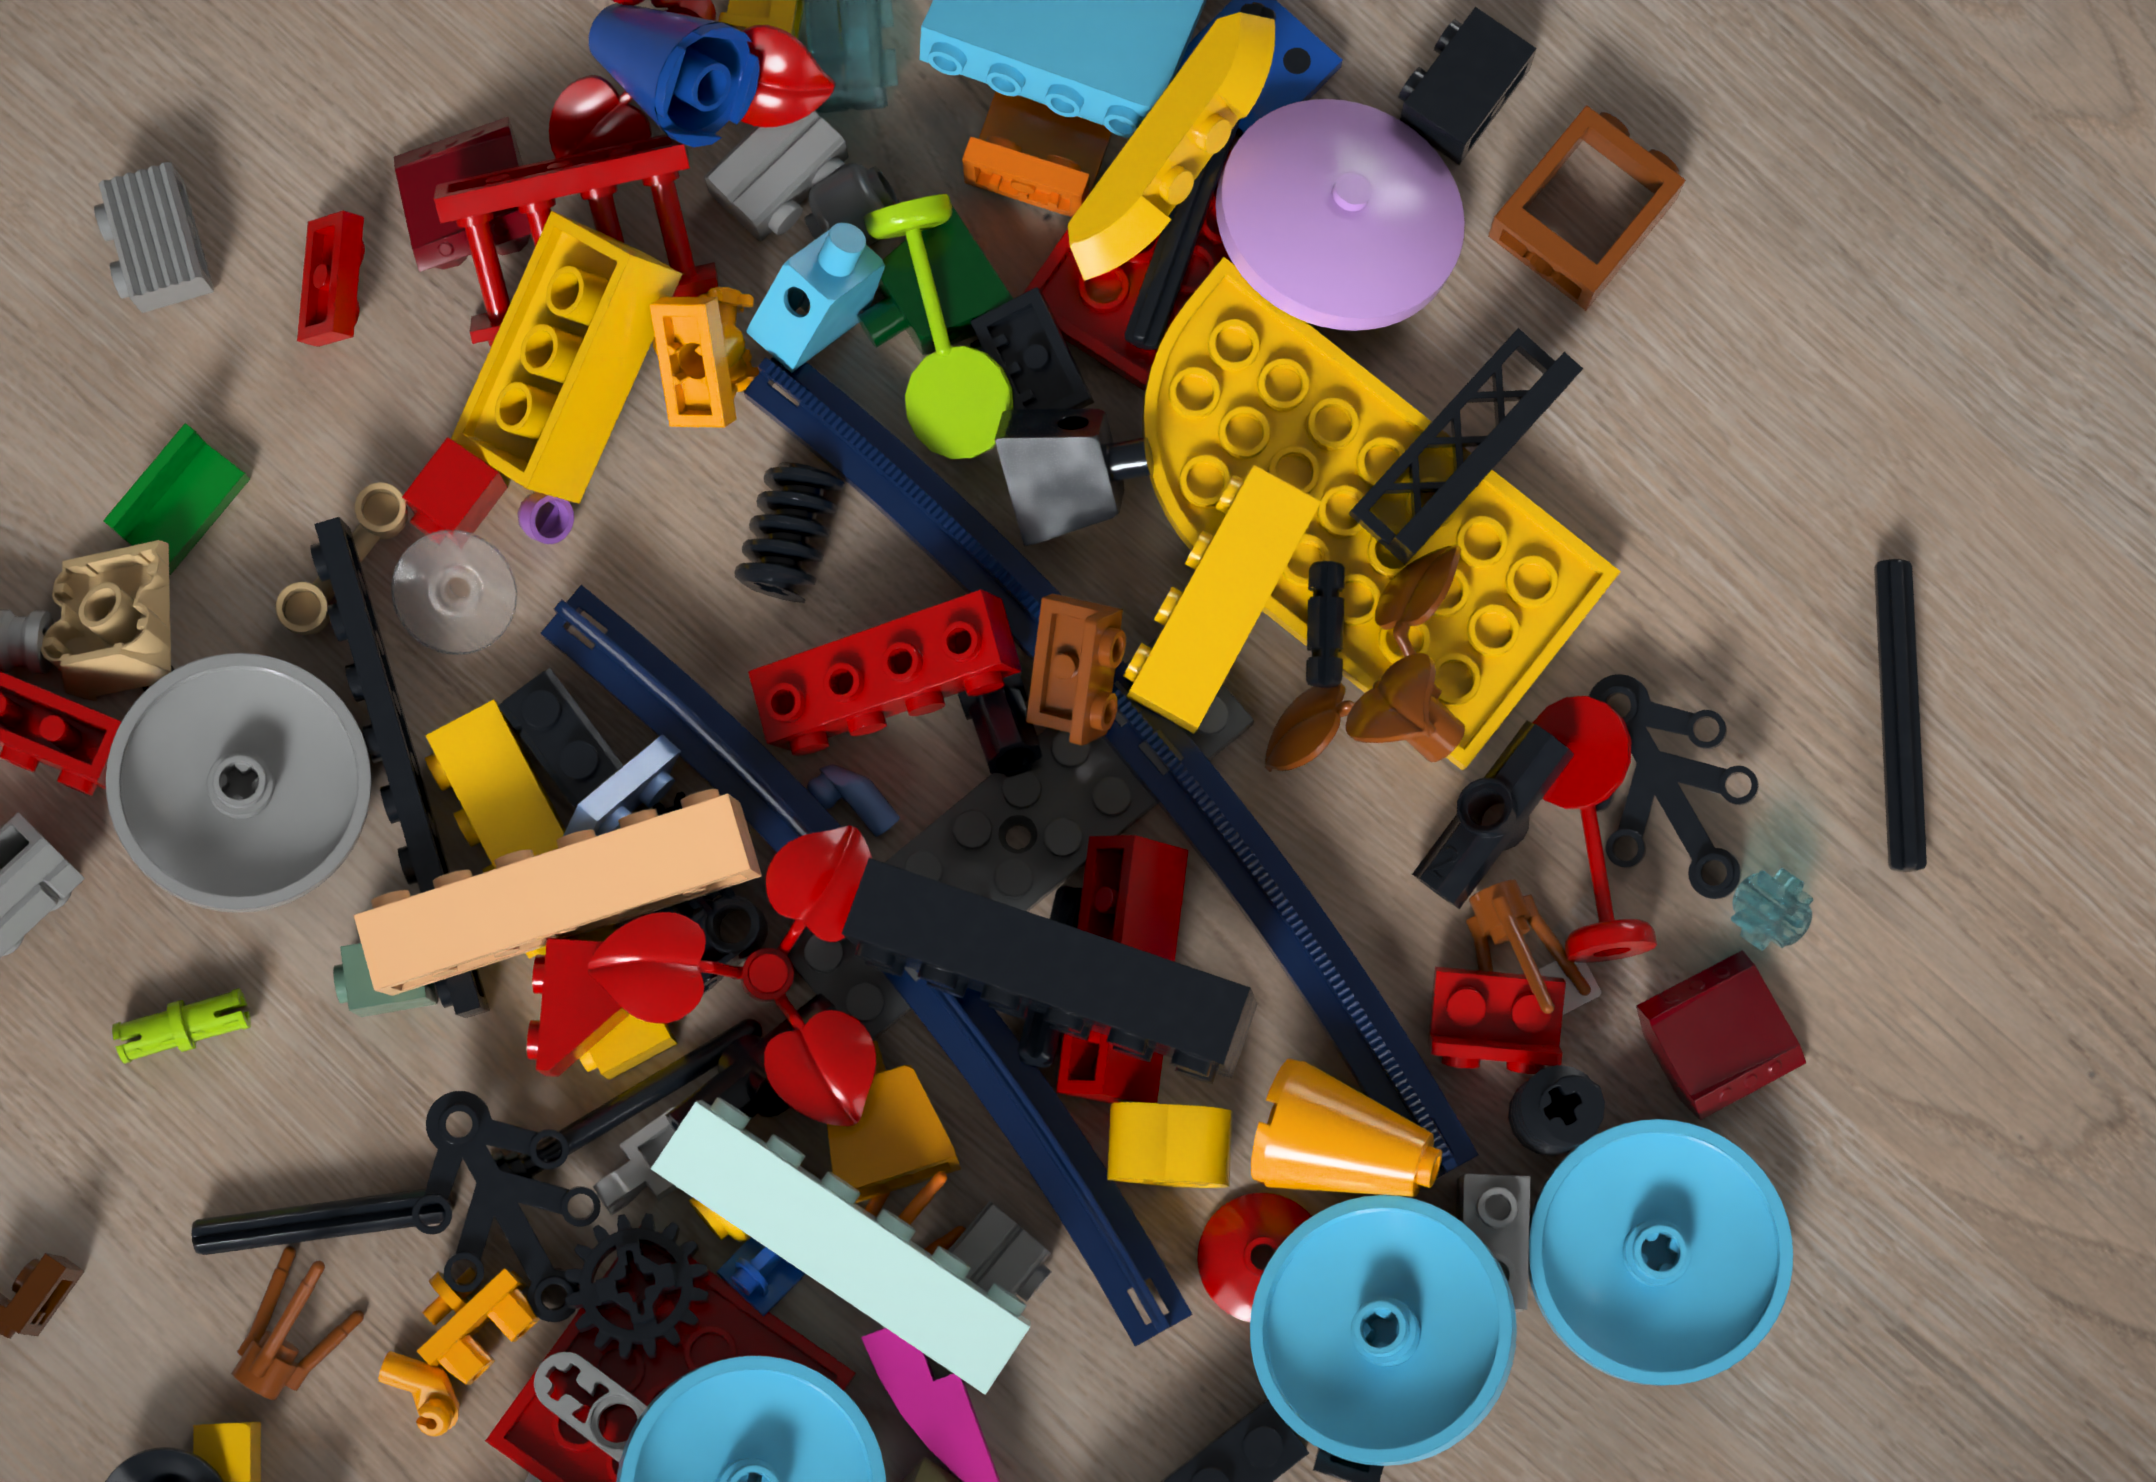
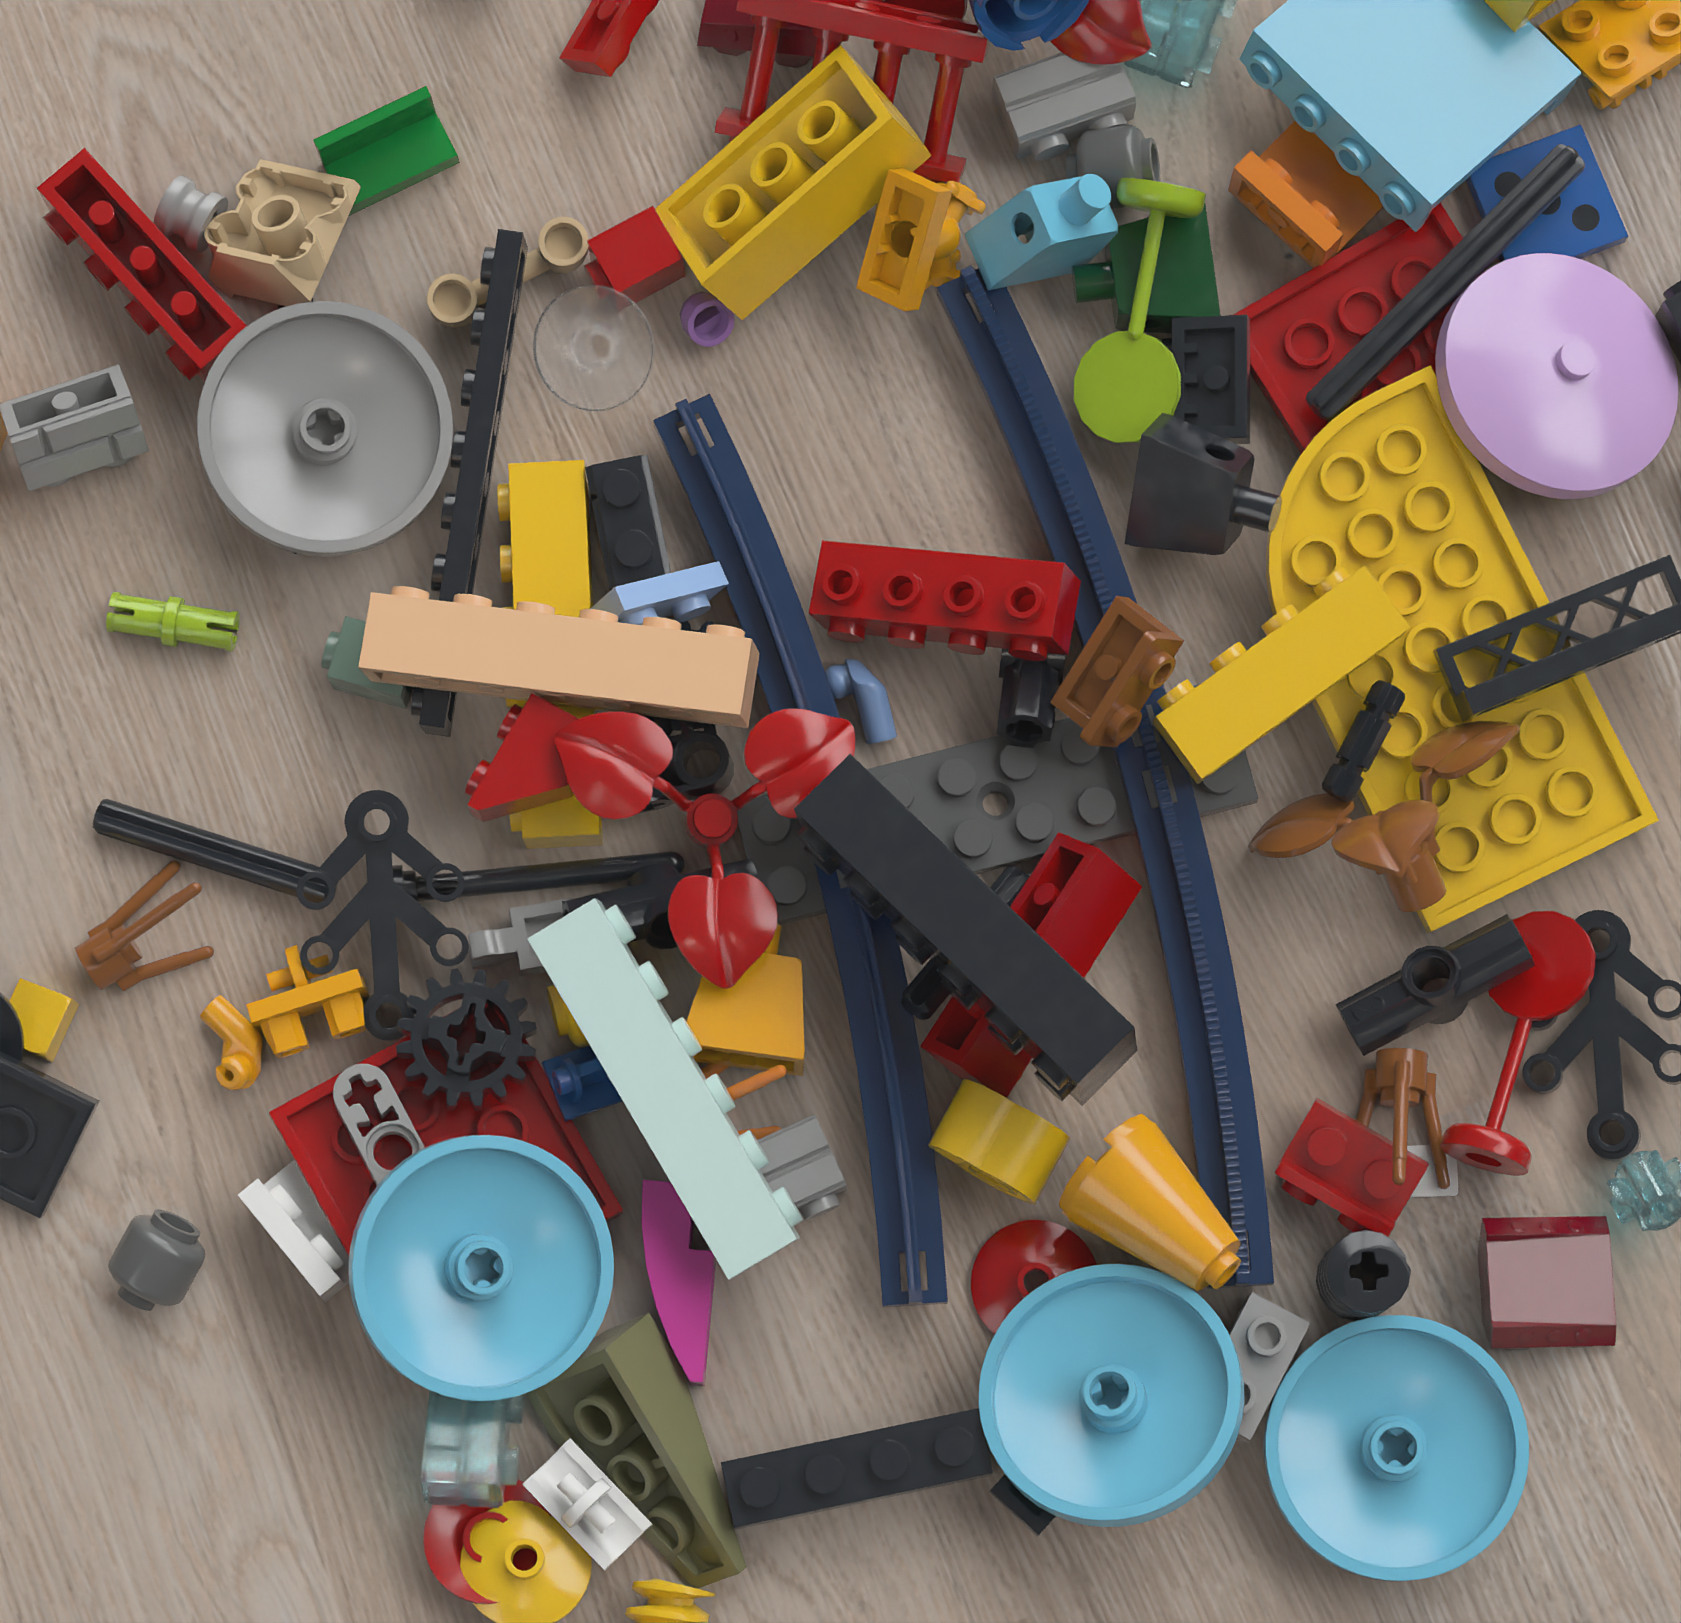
camera: 25 degrees right, 0 degrees up
(787, 530) = (917, 430): black piece -> none
(1173, 144) = (1432, 241): yellow brick -> none

